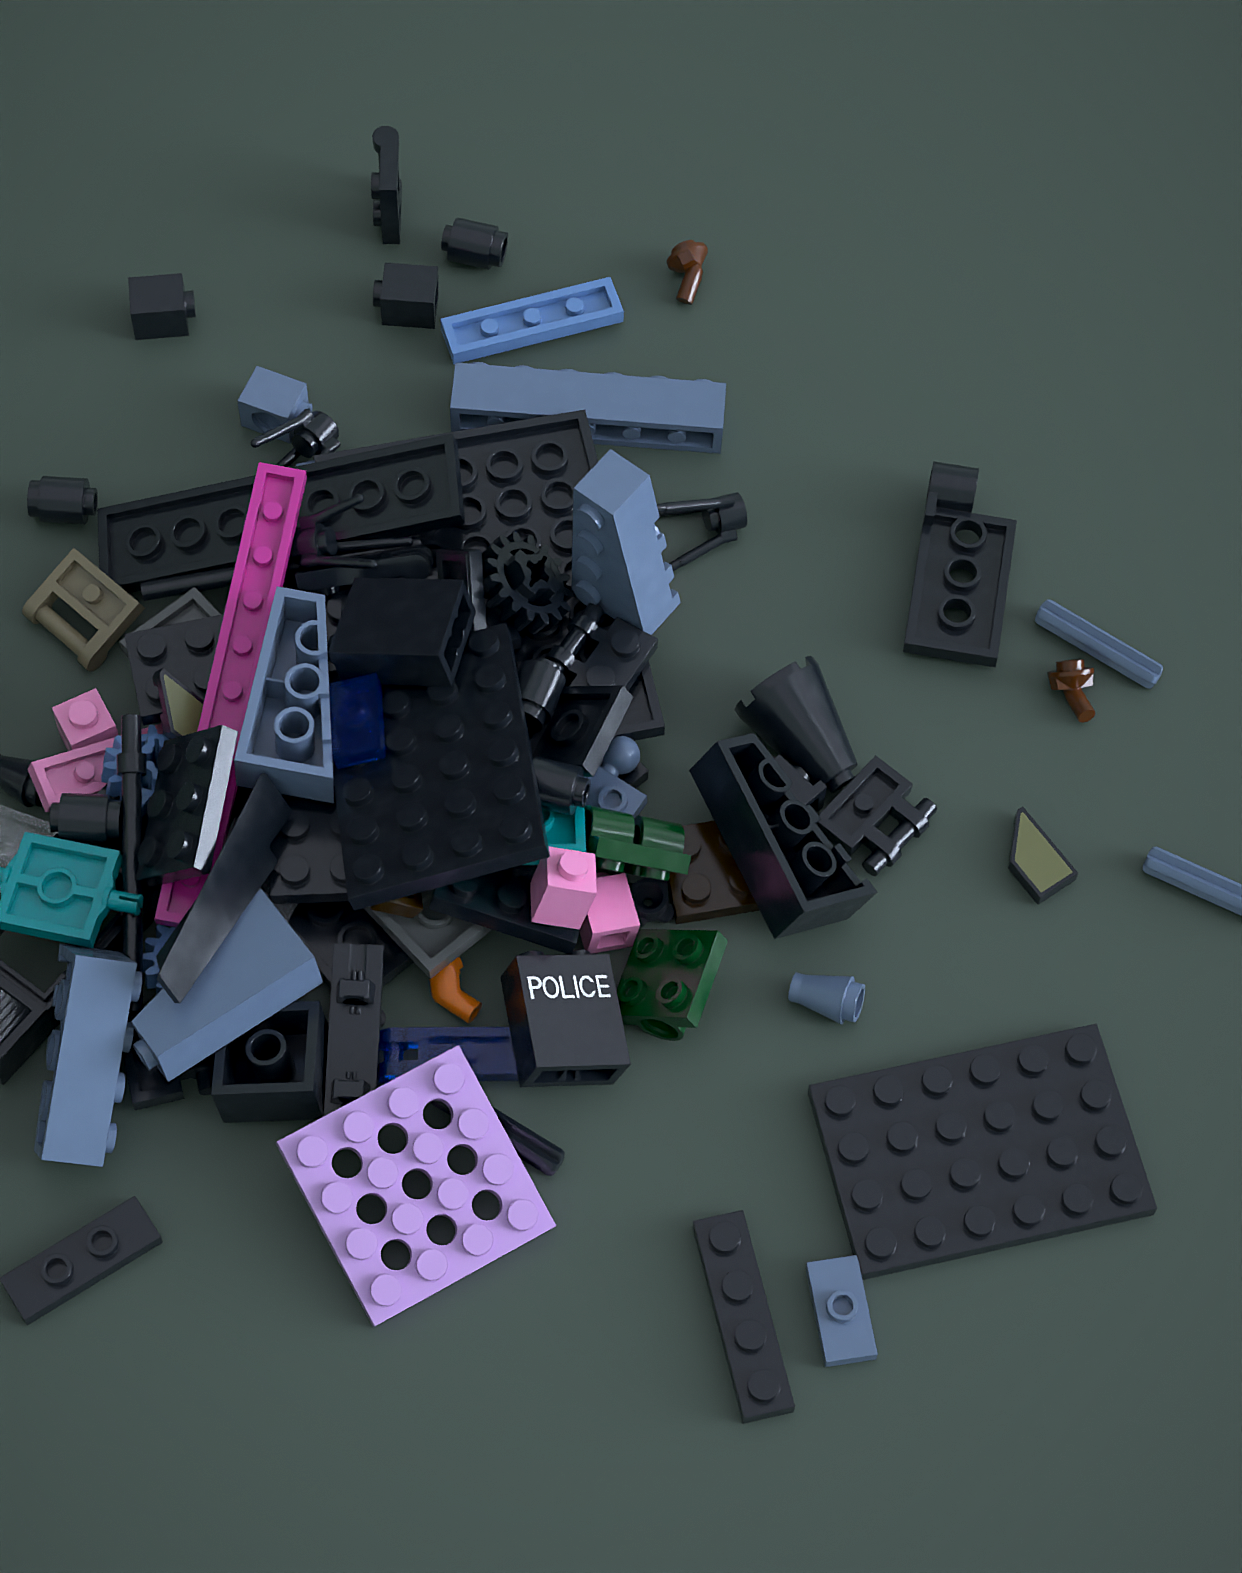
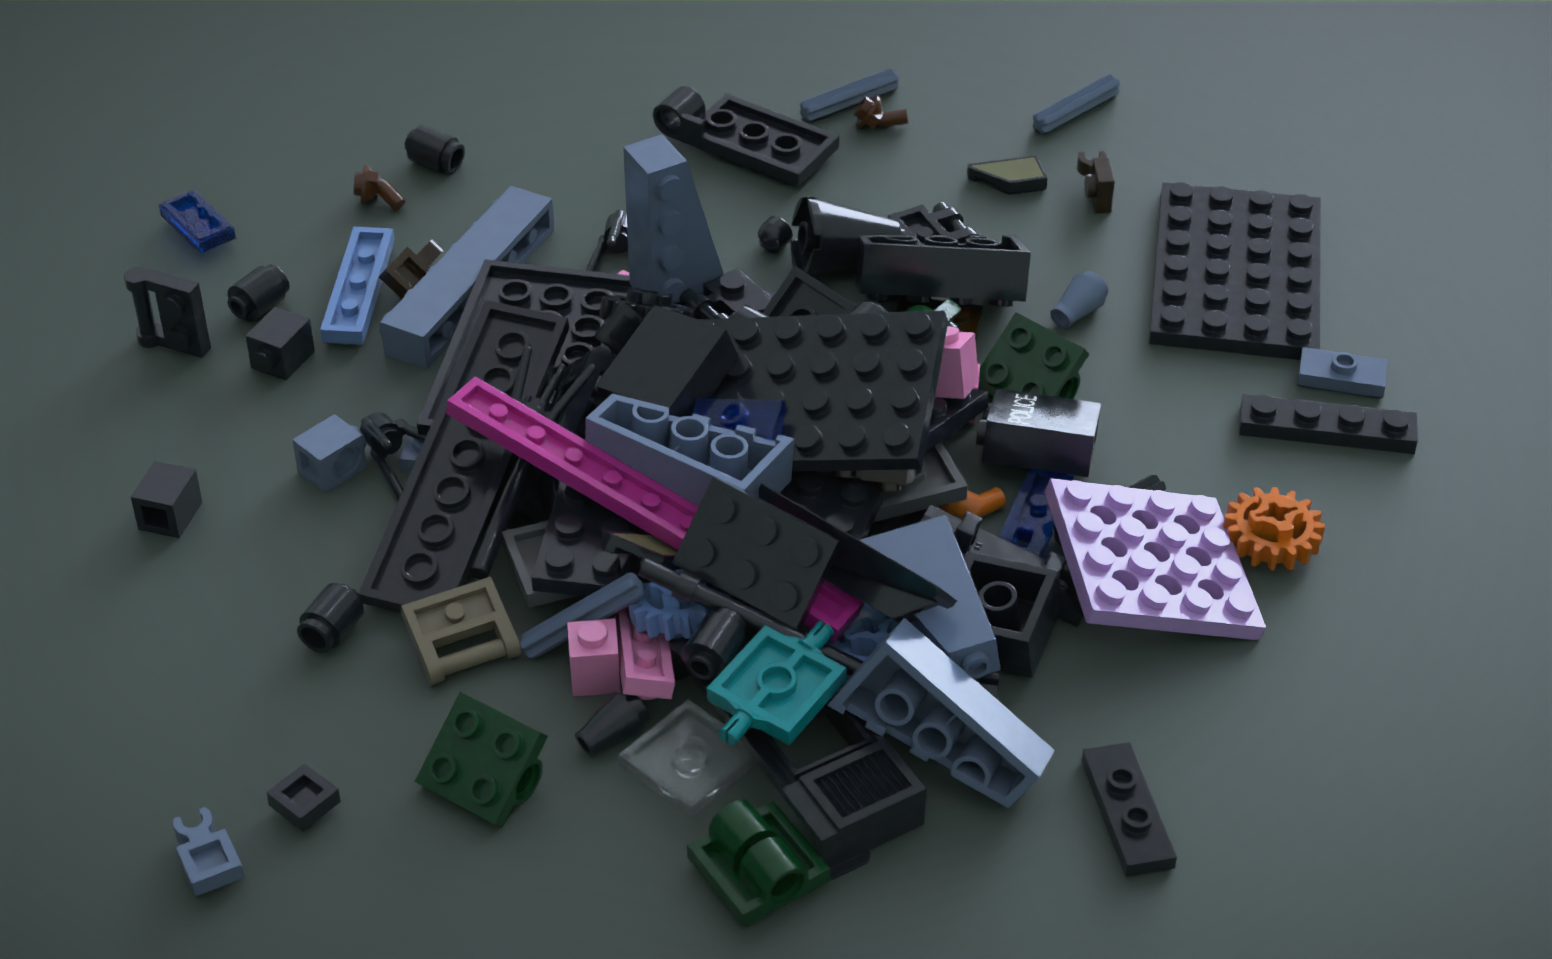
camera: 65 degrees left, 20 degrees down
(115, 693) = (593, 607): none -> sand blue axle
(542, 1281) = (1274, 528): none -> orange gear
(563, 145) = (197, 221): none -> clear blue plate
(567, 351) = (410, 268): none -> dark brown plate
(778, 292) = (434, 149): none -> black brick
(792, 651) = (774, 234): none -> black hinge
(1055, 955) = (1098, 181): none -> dark brown plate

